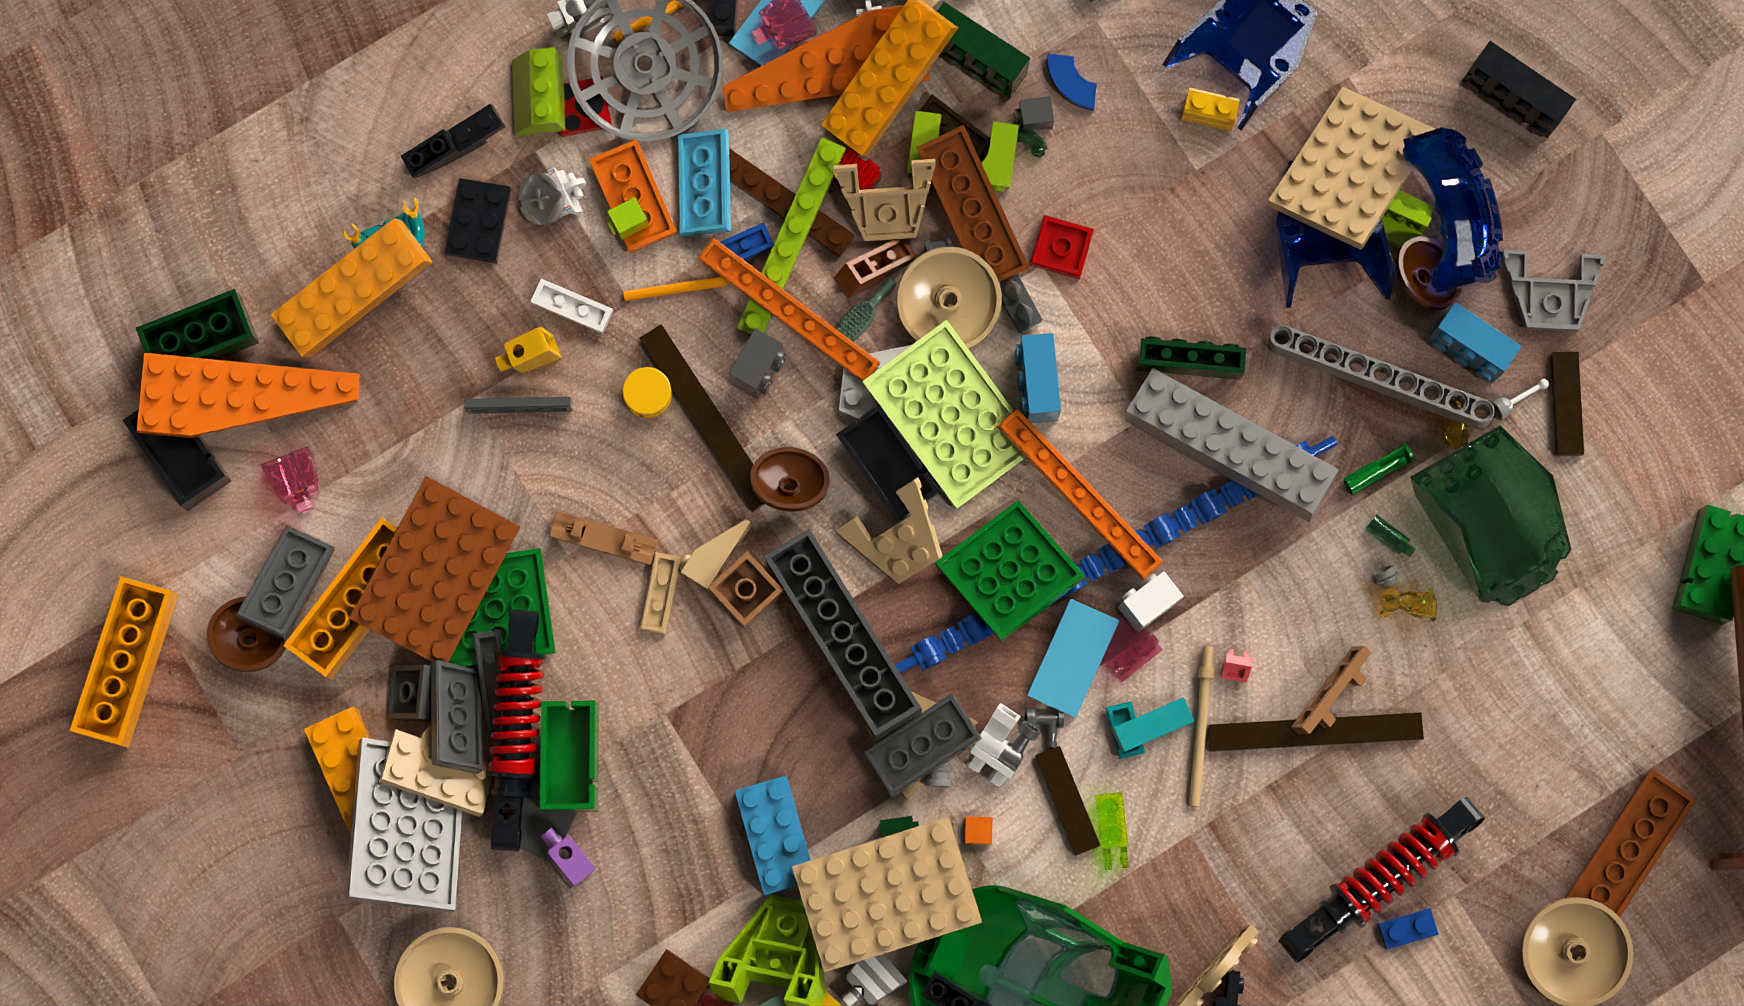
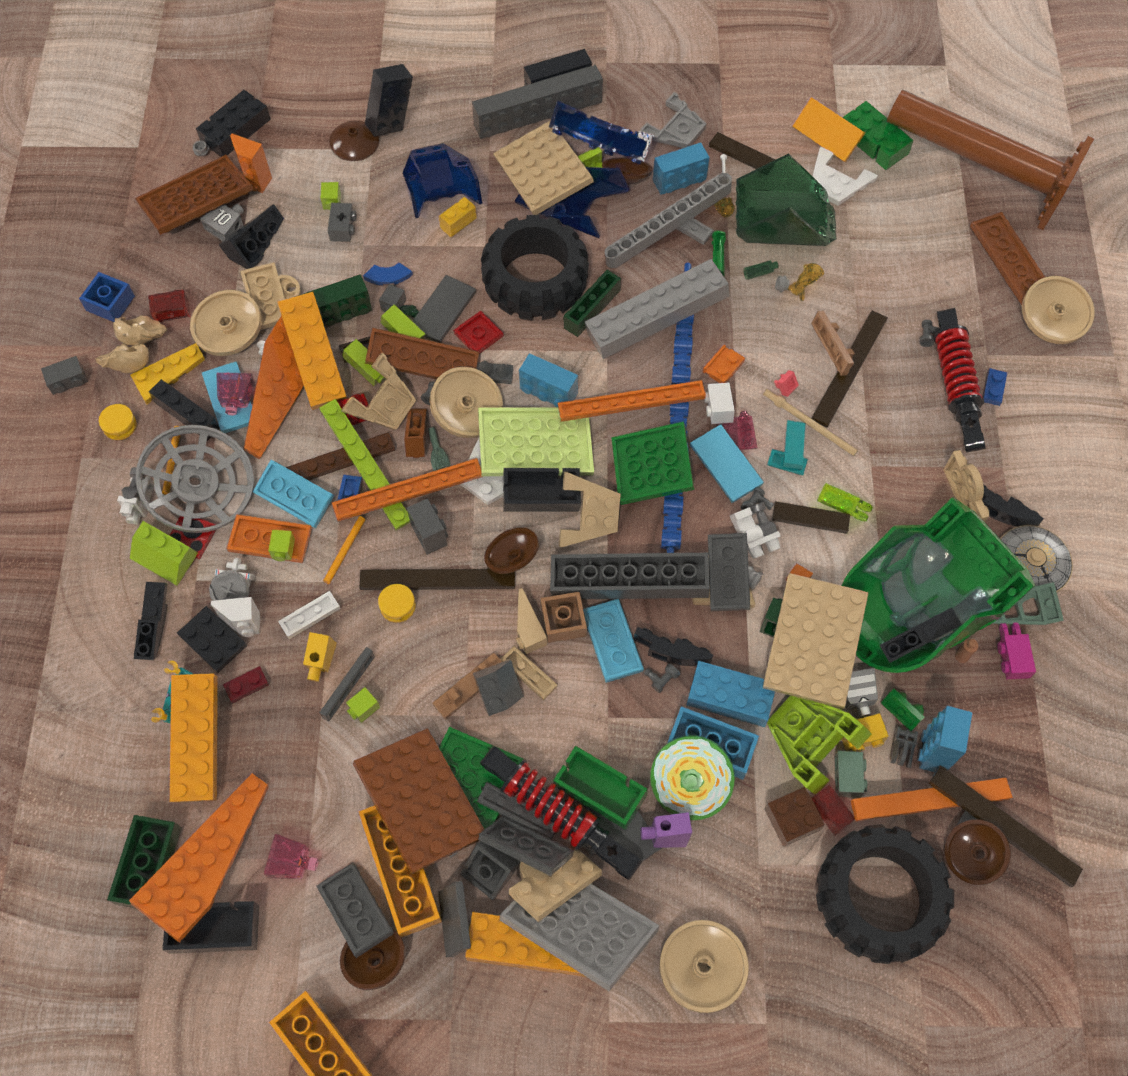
camera: 55 degrees left, 15 degrees down
(336, 692) = (454, 919): none -> dark grey tile
(451, 295) = (245, 684): none -> dark red plate
(505, 438) = (362, 705): none -> lime brick
(516, 234) = (239, 614): none -> white slope
(615, 572) = (498, 687): none -> dark grey slope
(645, 850) = (692, 777): none -> dish
(701, 847) = (735, 741): none -> dark azure brick
(741, 745) = (659, 683): none -> dark grey piece
(759, 662) = (612, 640): none -> medium azure tile
(789, 747) = (679, 653): none -> black slope
(1067, 181) = (443, 308): none -> dark grey tile
(1209, 203) = (534, 237): none -> black tyre
(1215, 573) = (723, 364): none -> orange plate
(1399, 413) = (696, 230): none -> light grey tile
(1441, 799) = (927, 339): none -> dark grey piece
(1457, 92) = (536, 101): none -> dark grey brick
(1597, 552) = (838, 185): none -> white wing
(1678, 496) = (828, 129): none -> light orange tile

